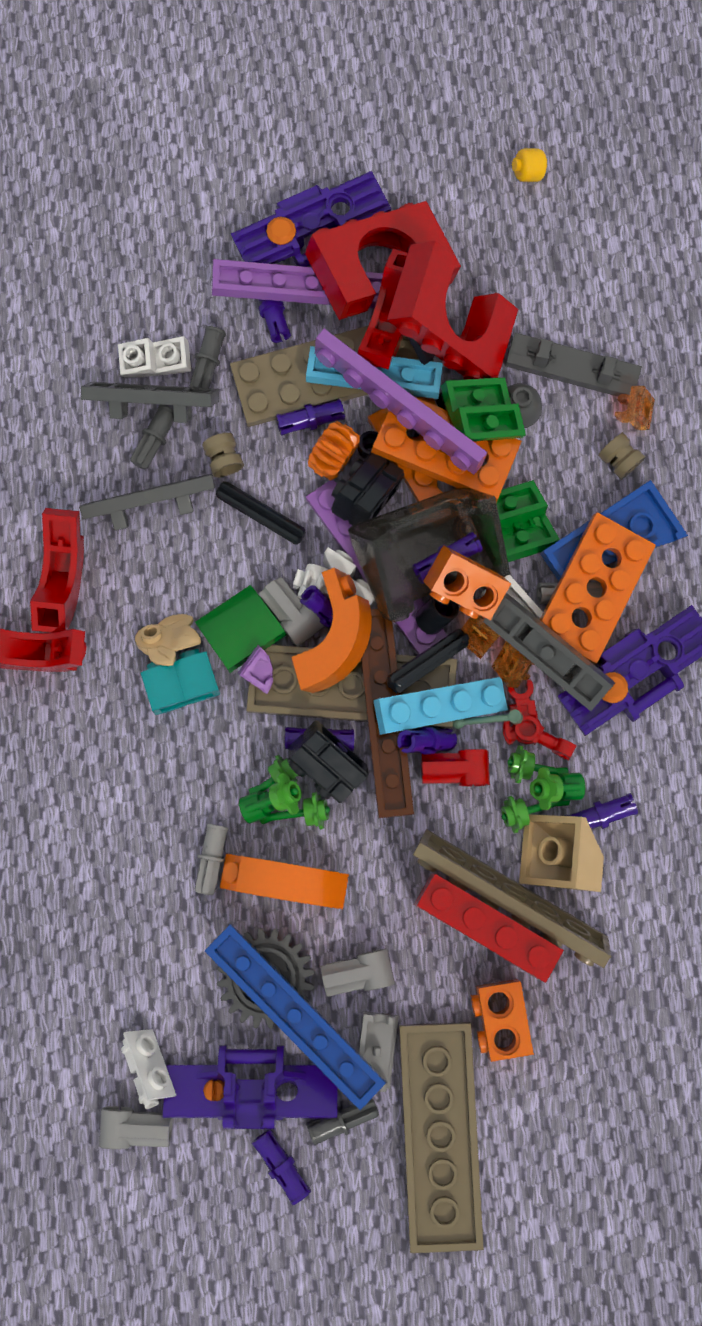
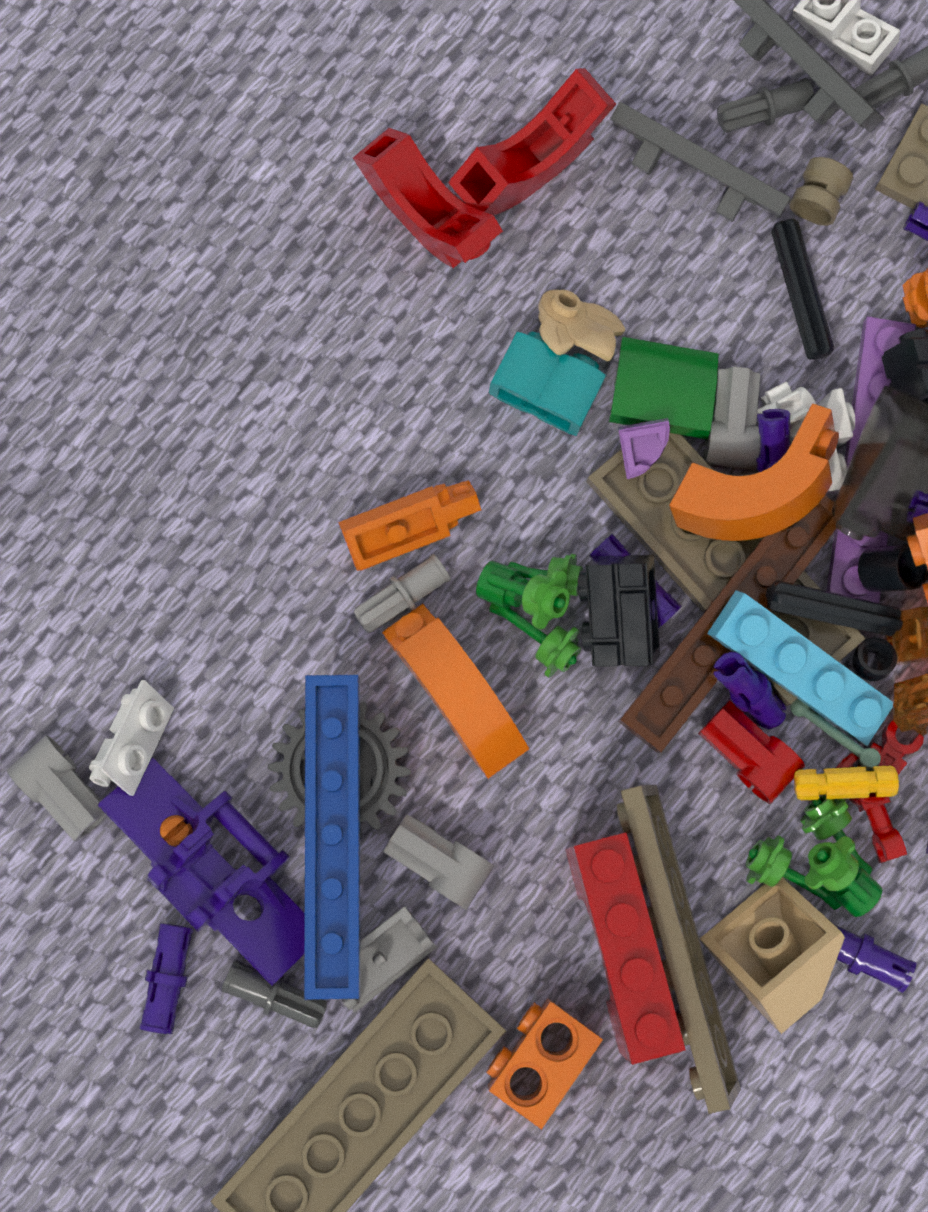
camera: 40 degrees right, 0 degrees up
(179, 821) = (407, 523): none -> orange hinge
(477, 662) = (884, 659): none -> black hinge
(515, 740) = (846, 783): none -> yellow axle

